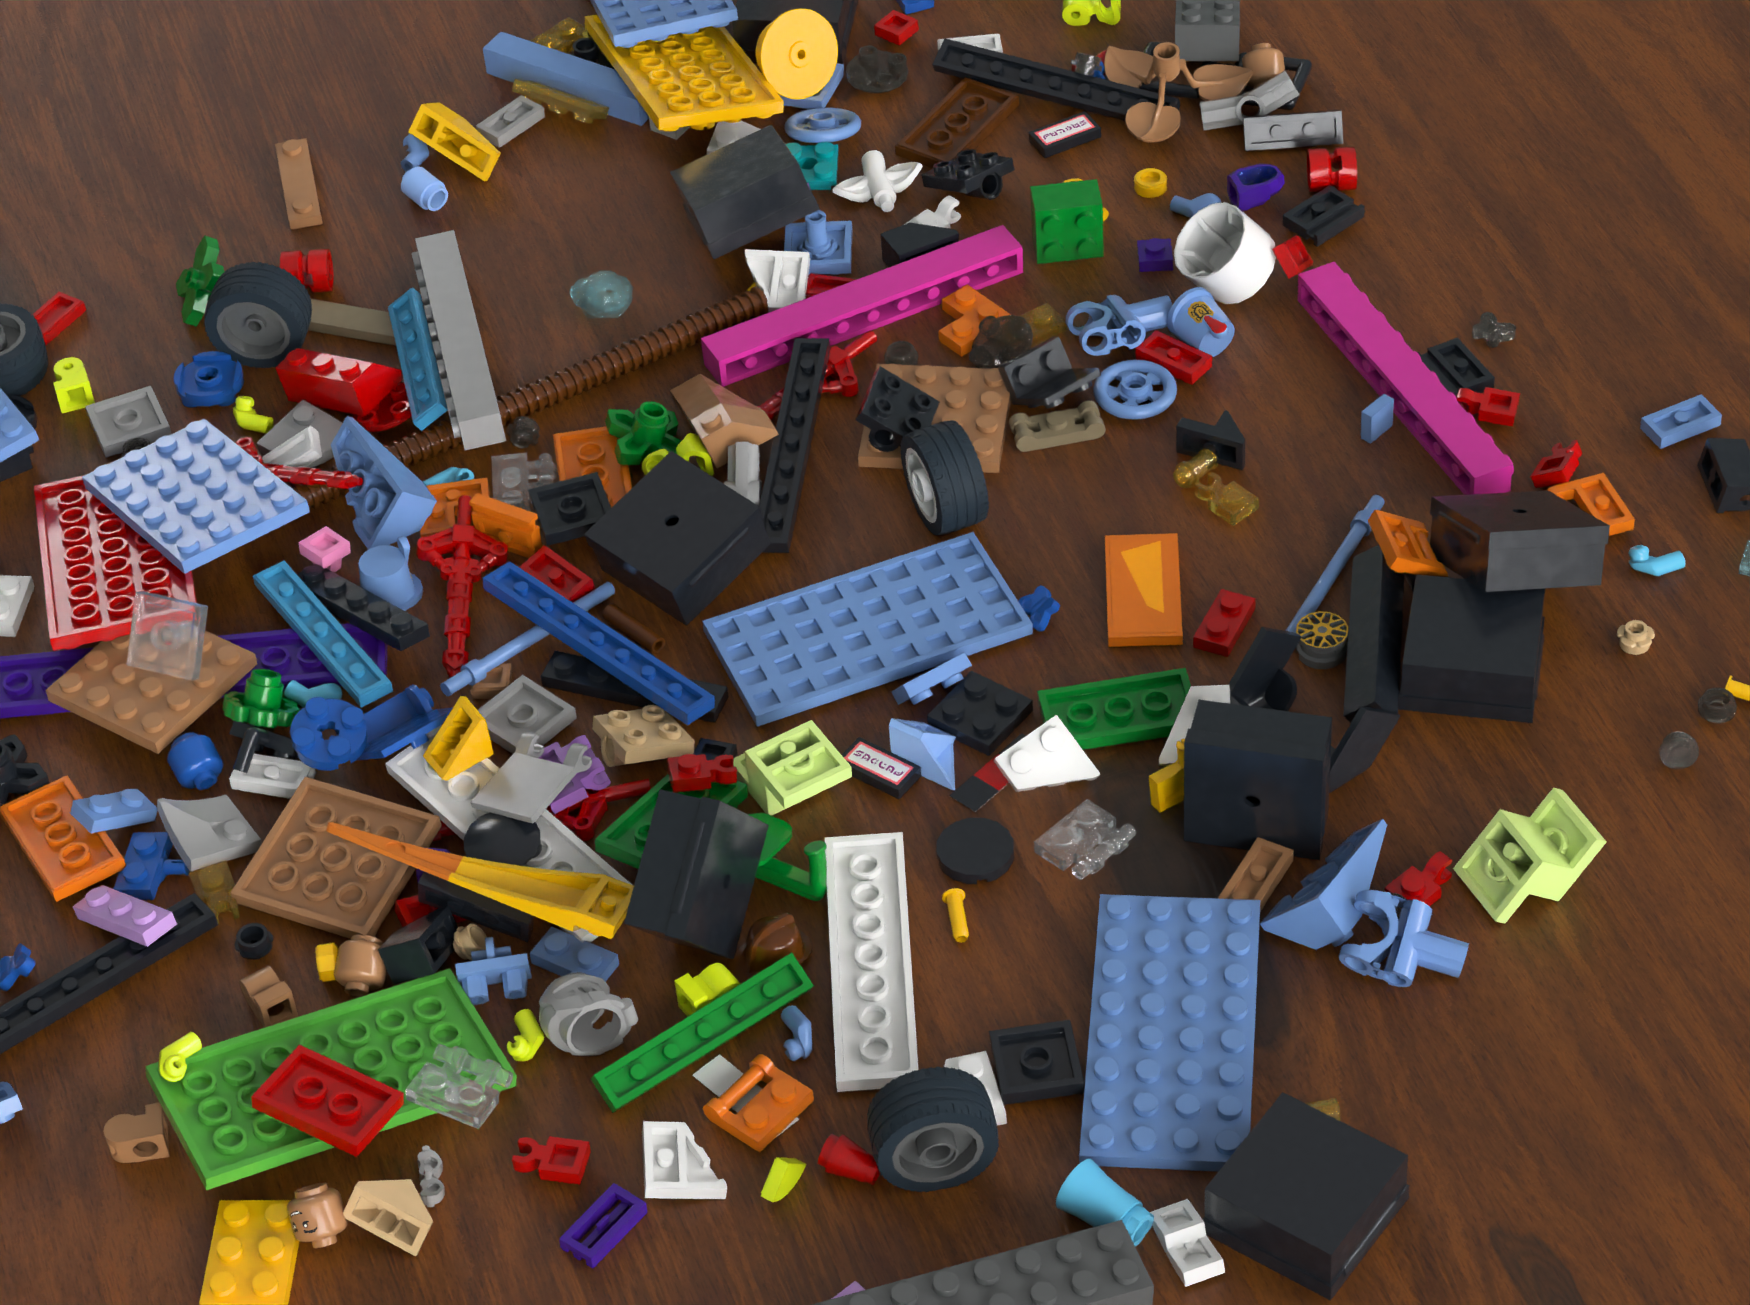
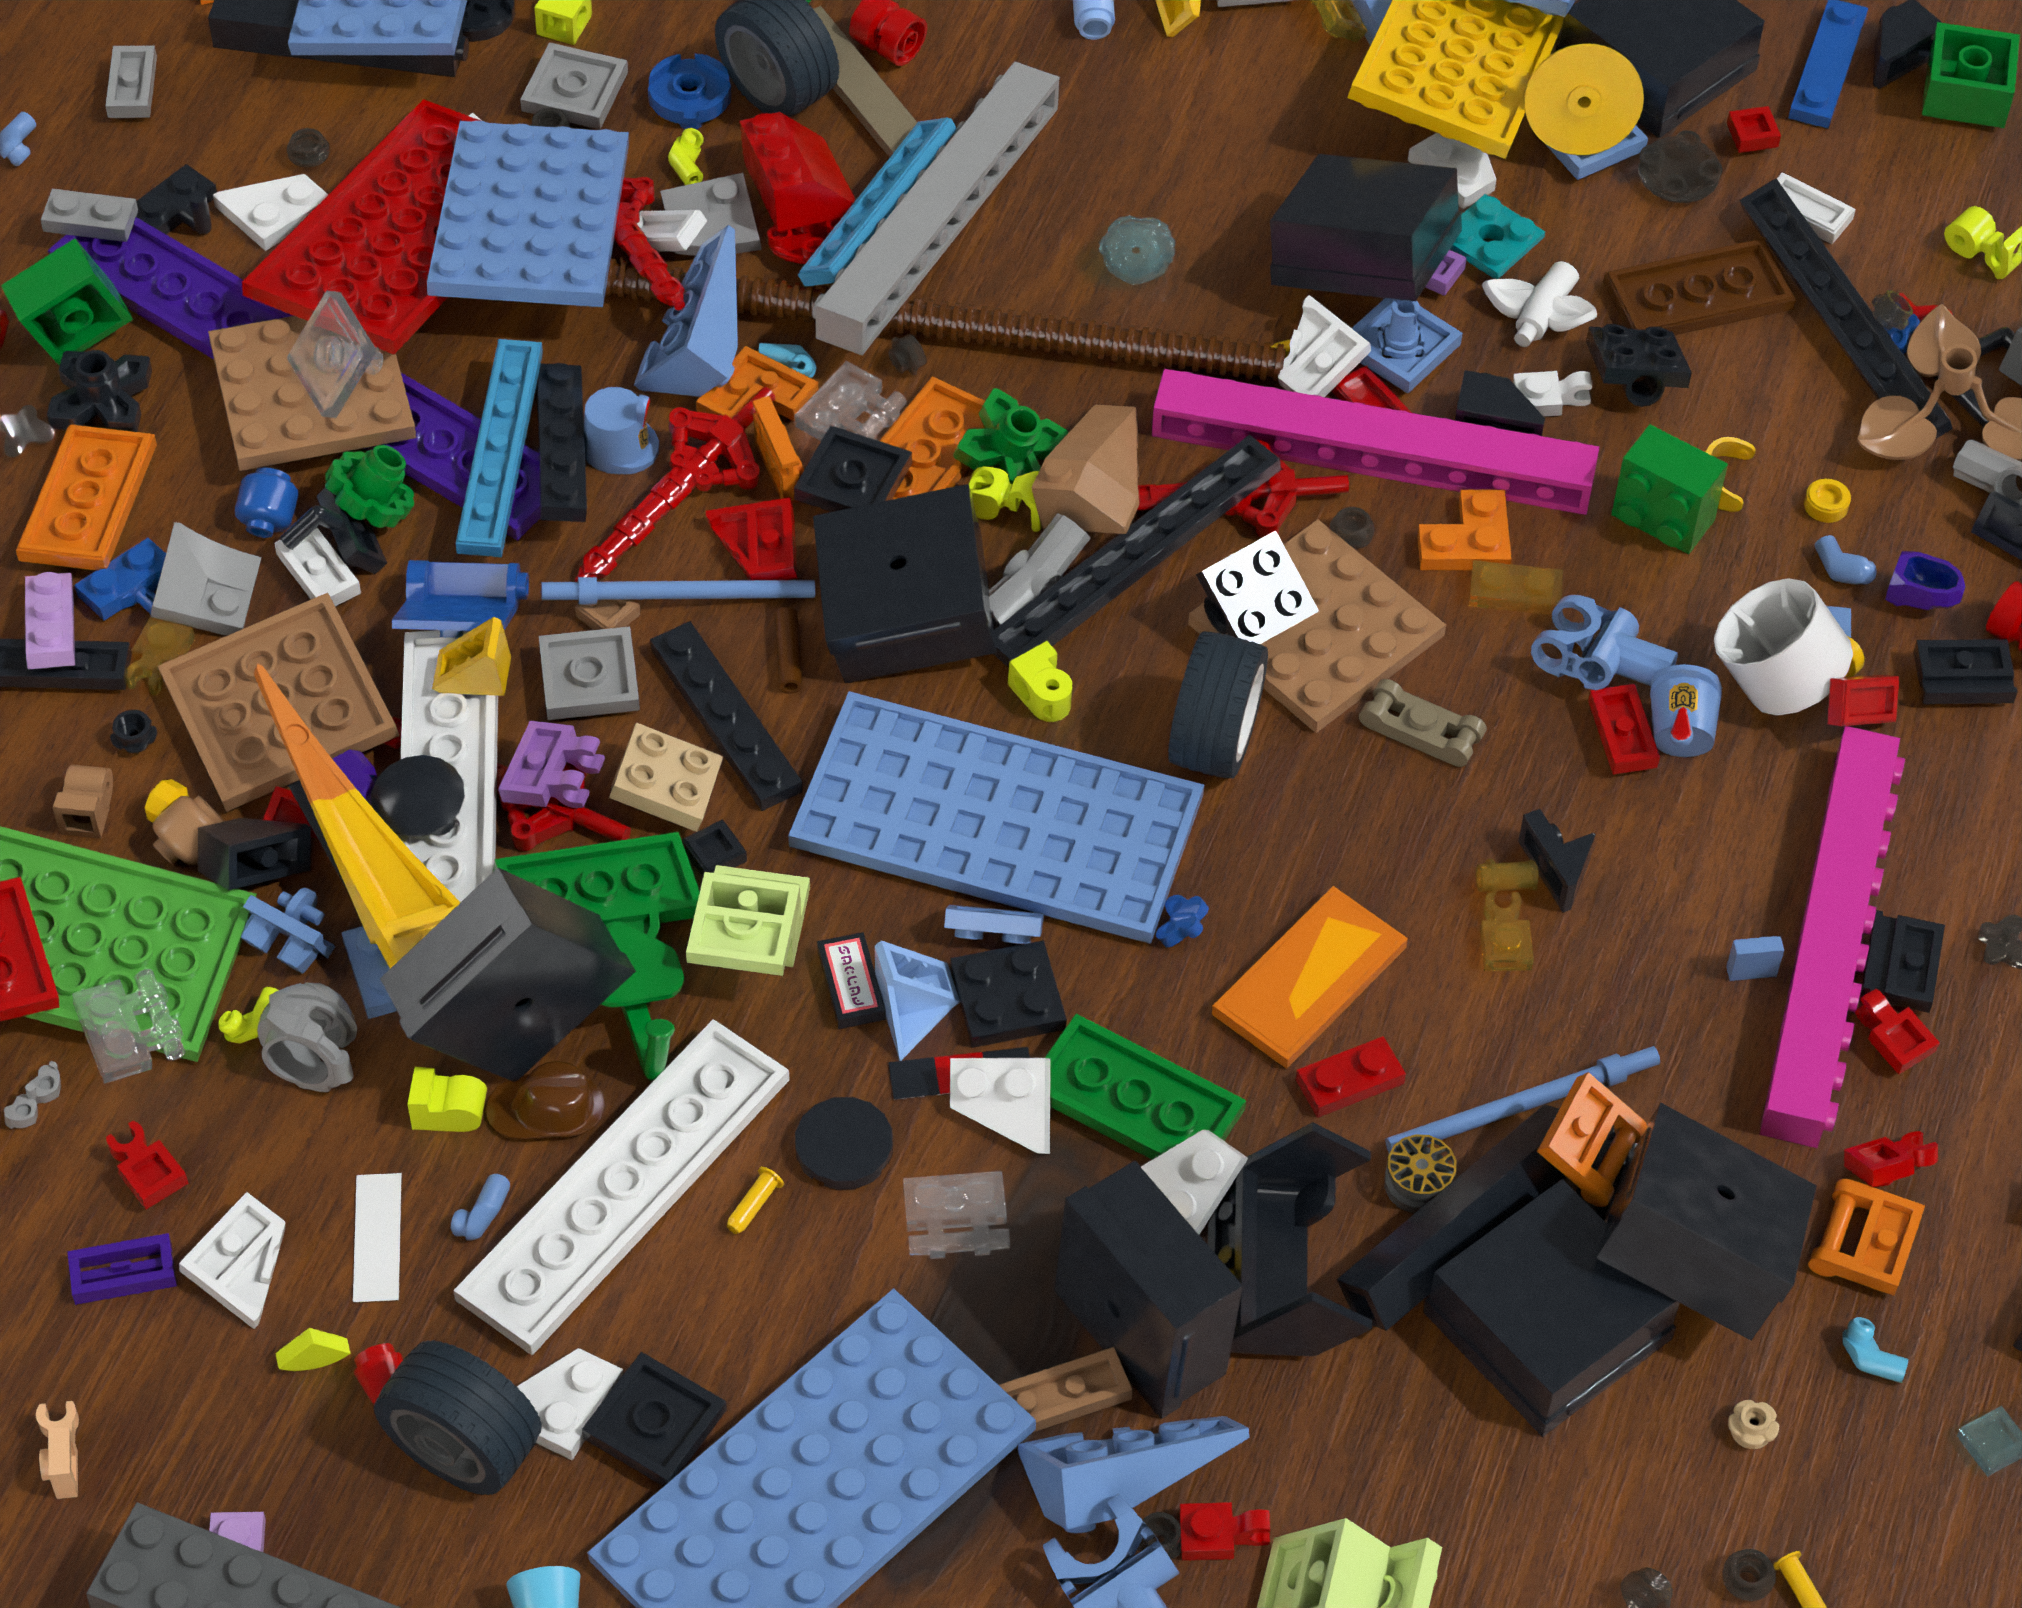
camera: 35 degrees right, 10 degrees up
(113, 810) = (147, 501): medium blue plate -> none
(301, 694) = (433, 511): medium azure arm -> none
(325, 549) = (596, 355): bright pink tile -> none
(326, 714) = (380, 539): blue plate -> none
(468, 939) = (311, 876): tan plate -> none
(528, 783) = (497, 751): light grey flag -> none
(599, 643) = (719, 647): blue plate -> none
(696, 772) = (667, 855): red plate -> none
(701, 1032) = (398, 1140): green plate -> none
(767, 1111) = (375, 1269): orange plate -> none
(813, 545) = (1039, 683): none -> neon yellow leg
(822, 125) = (1554, 197): medium blue plate -> none
(1000, 341) = (1459, 585): clear smoke dish -> none
(1044, 375) = (1460, 657): black bracket -> none
(1065, 134) = (1798, 379): tile -> none
(1135, 389) = (1548, 726): medium blue plate -> none
(1155, 255) = (1733, 585): dark purple plate -> none

